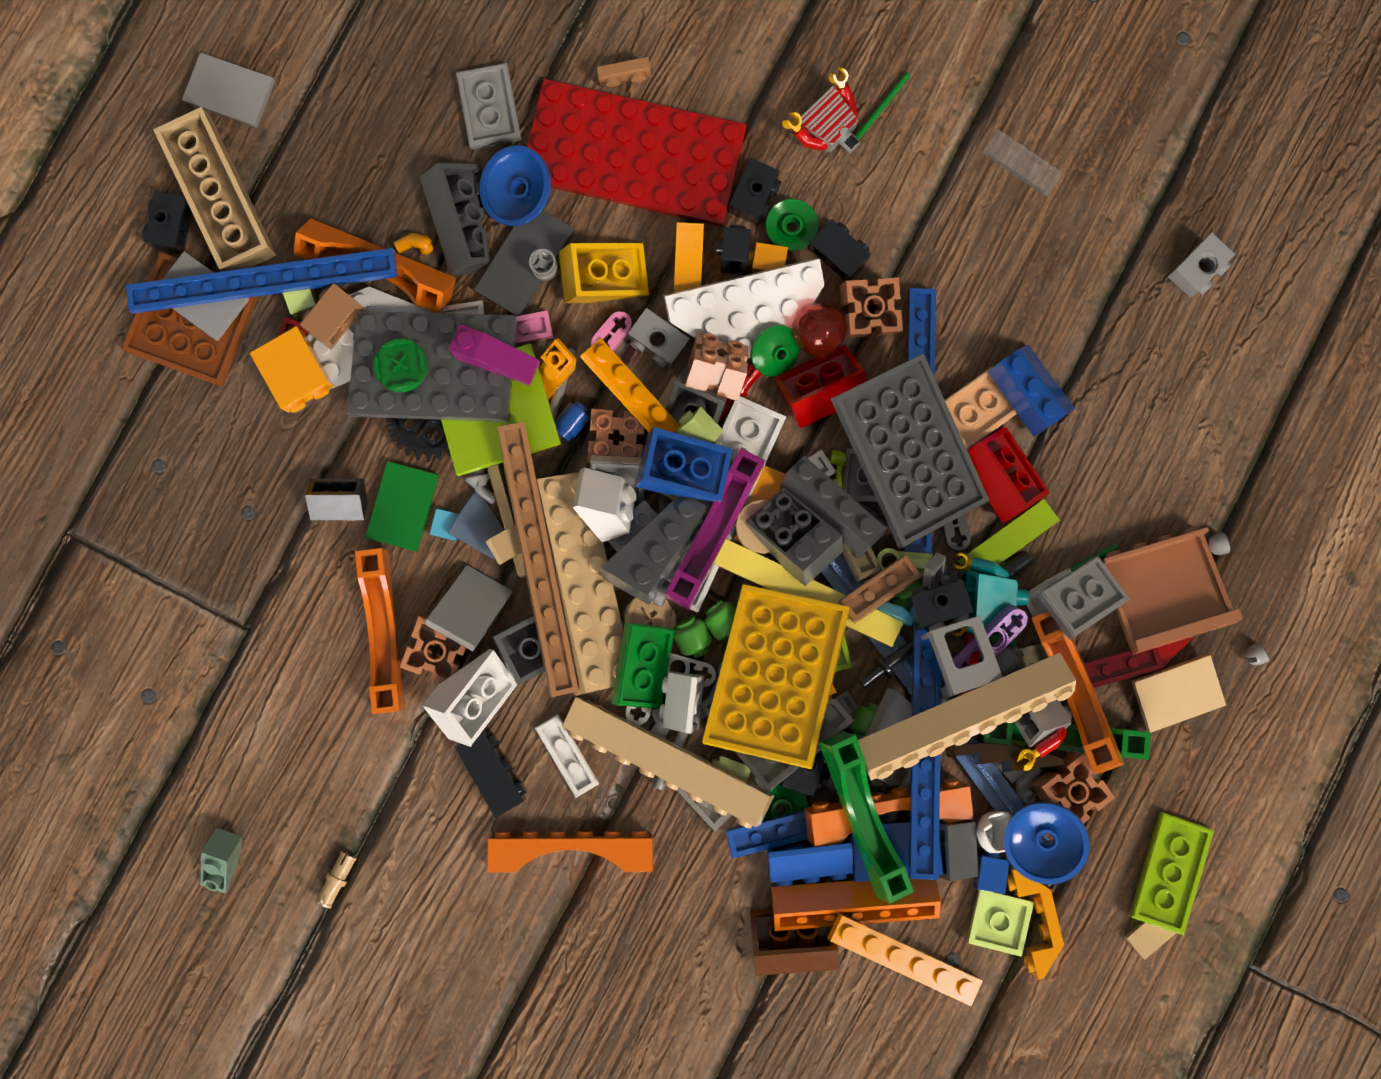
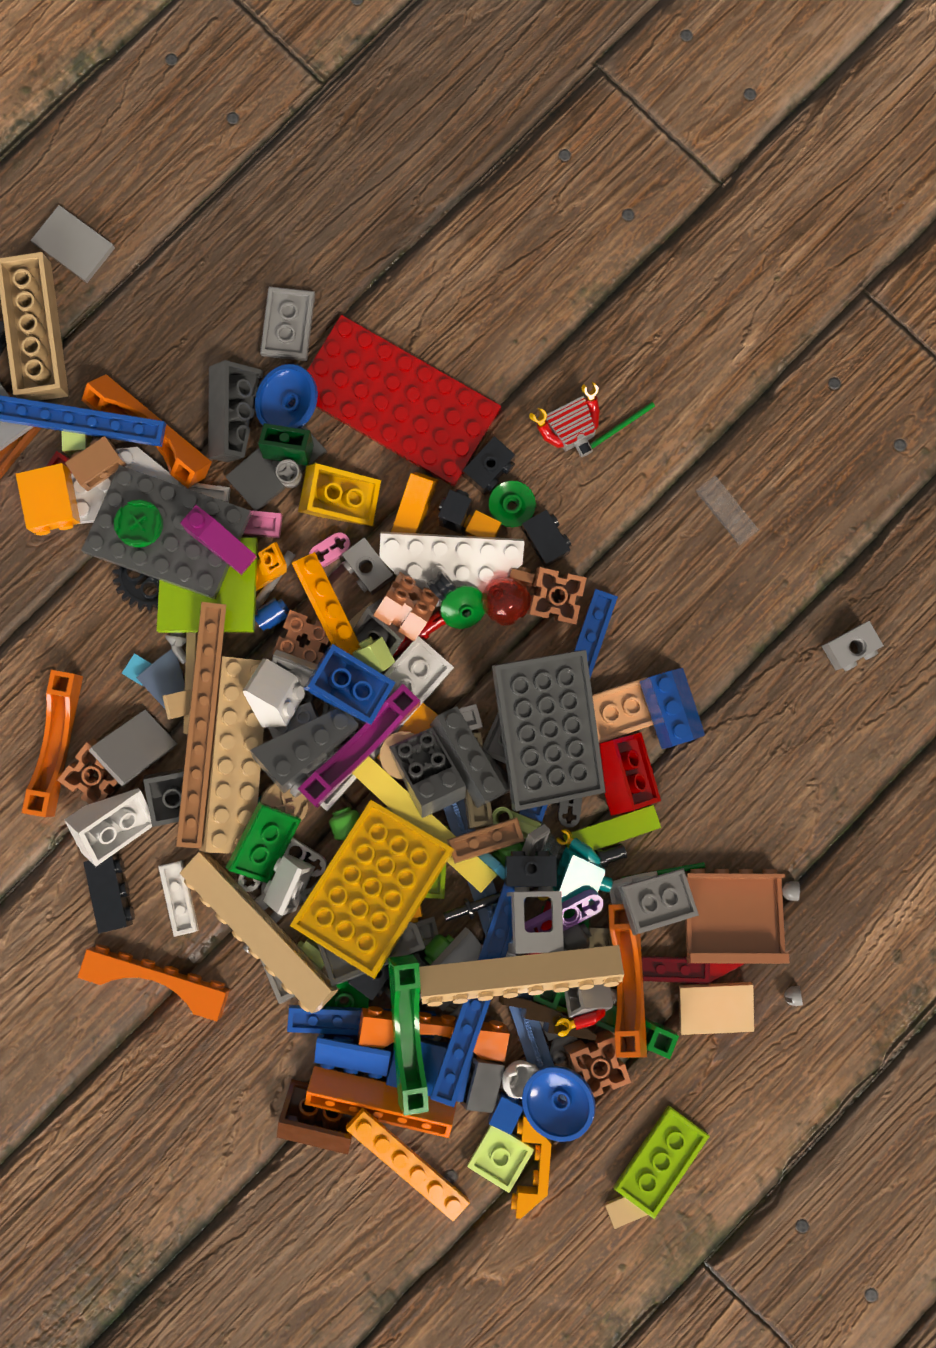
camera: 15 degrees right, 0 degrees up
(336, 499) = (51, 619): brick -> none
(402, 506) = (106, 642): green tile -> none
(414, 240) = (187, 419): light orange arm -> none
(530, 232) = (286, 443): none -> dark green brick
(617, 73) = (410, 329): medium nougat plate -> none
(692, 636) = (315, 830): bright green head -> none
(747, 332) = (442, 585): none -> black wheel
(811, 385) = (491, 645): red slope -> none
(829, 297) = (523, 575): none -> medium nougat plate
(838, 458) = (489, 716): lime hand -> none

